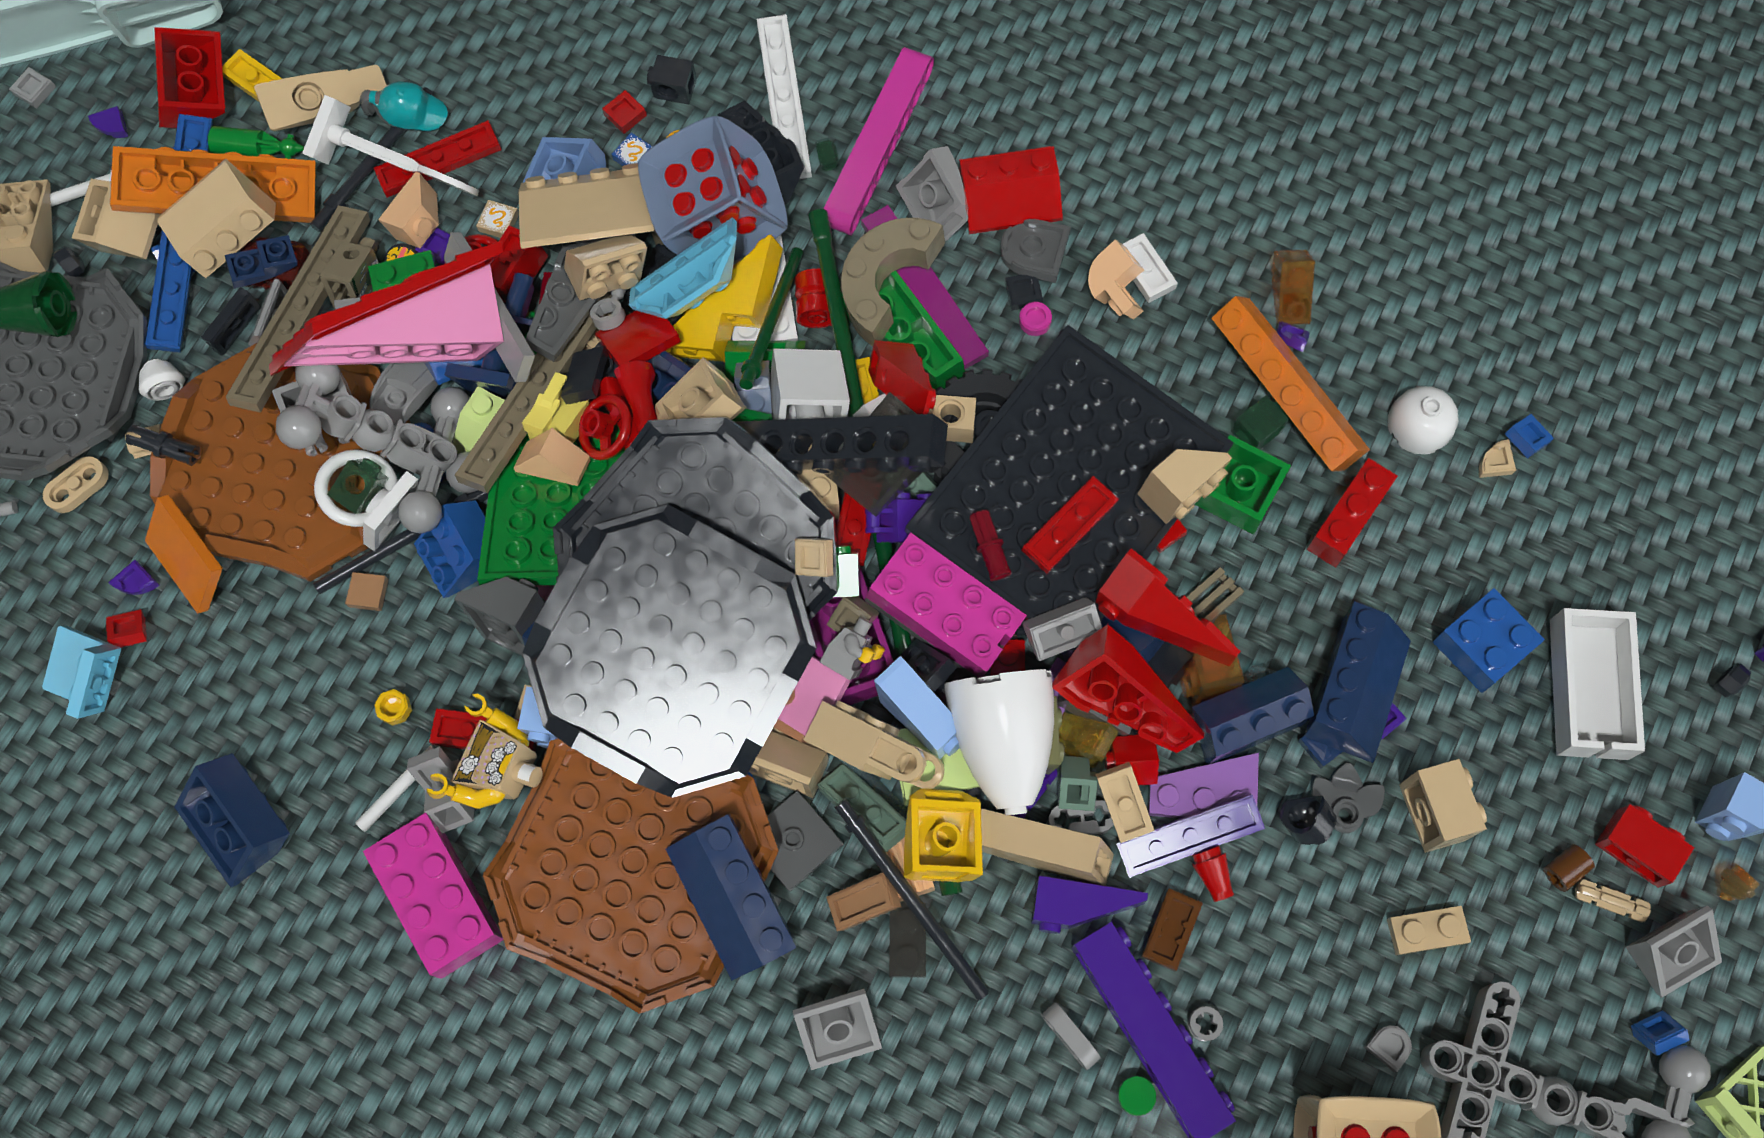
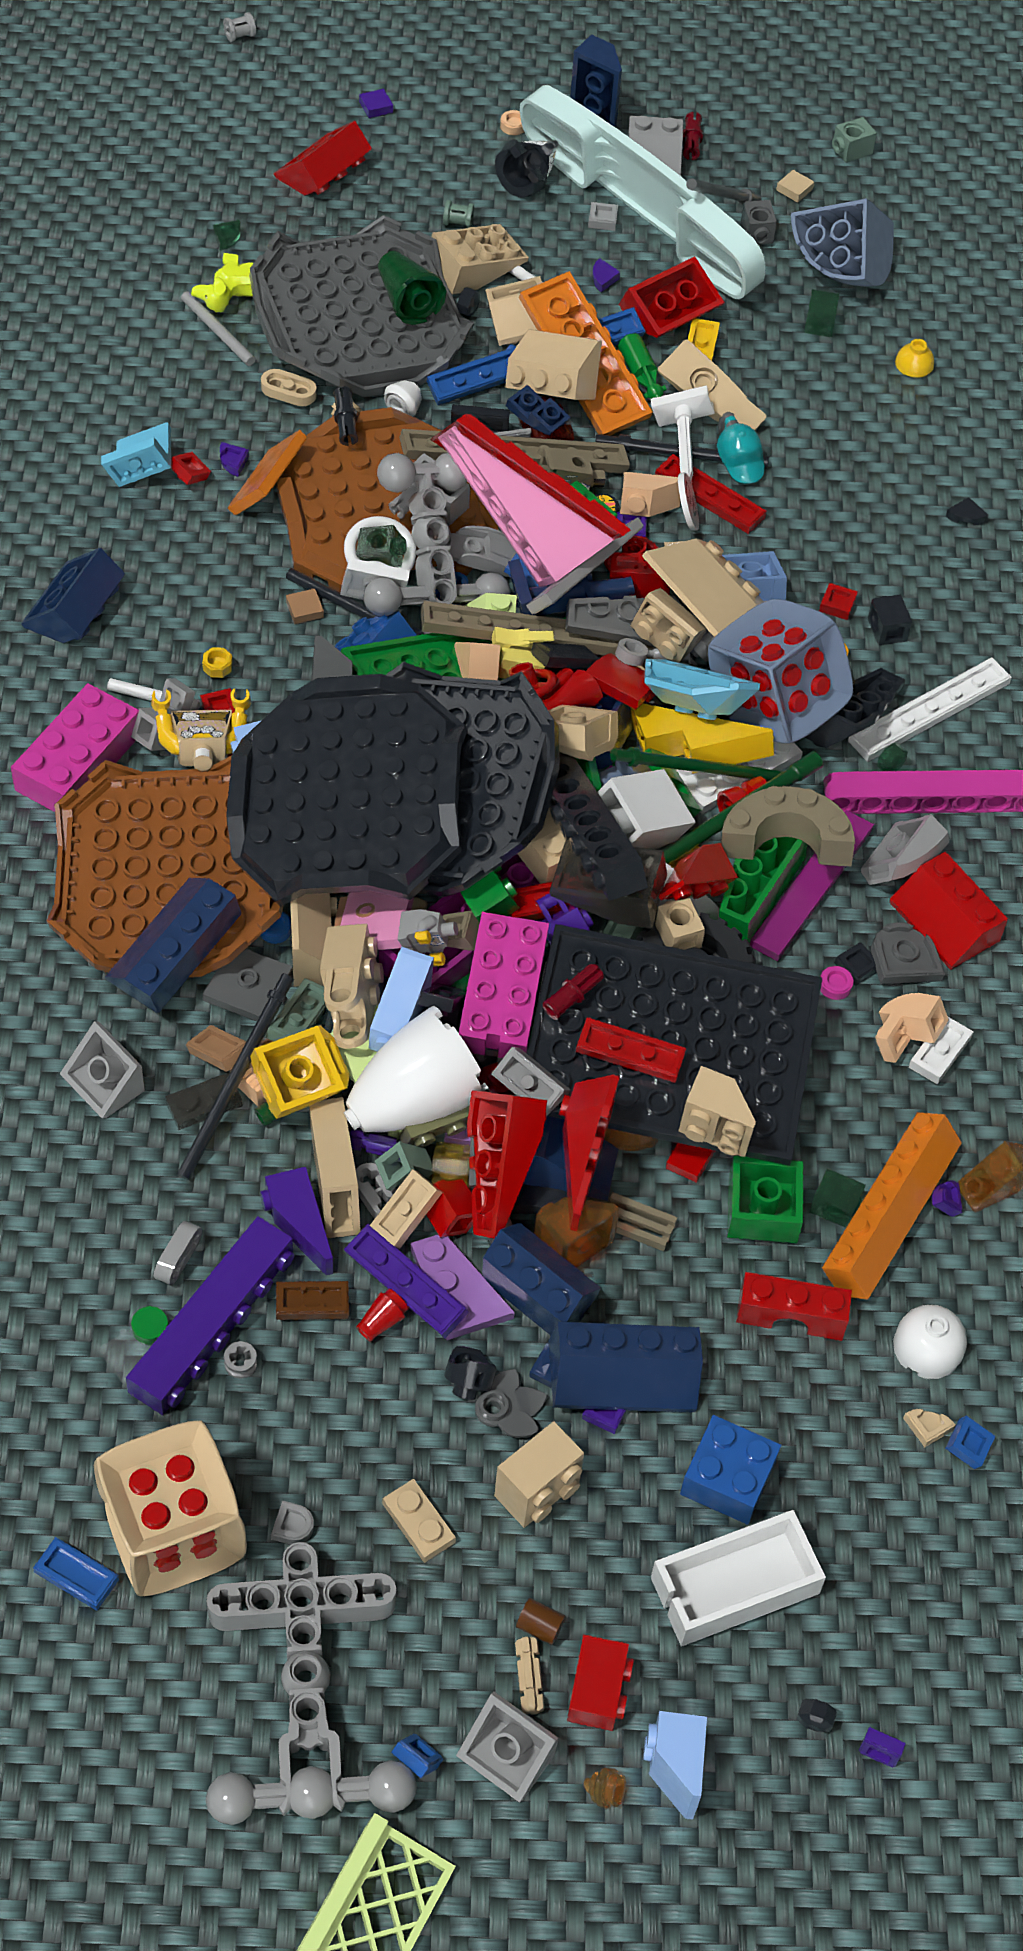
camera: 55 degrees right, 15 degrees down
(814, 557) = (480, 849): tan tile -> none

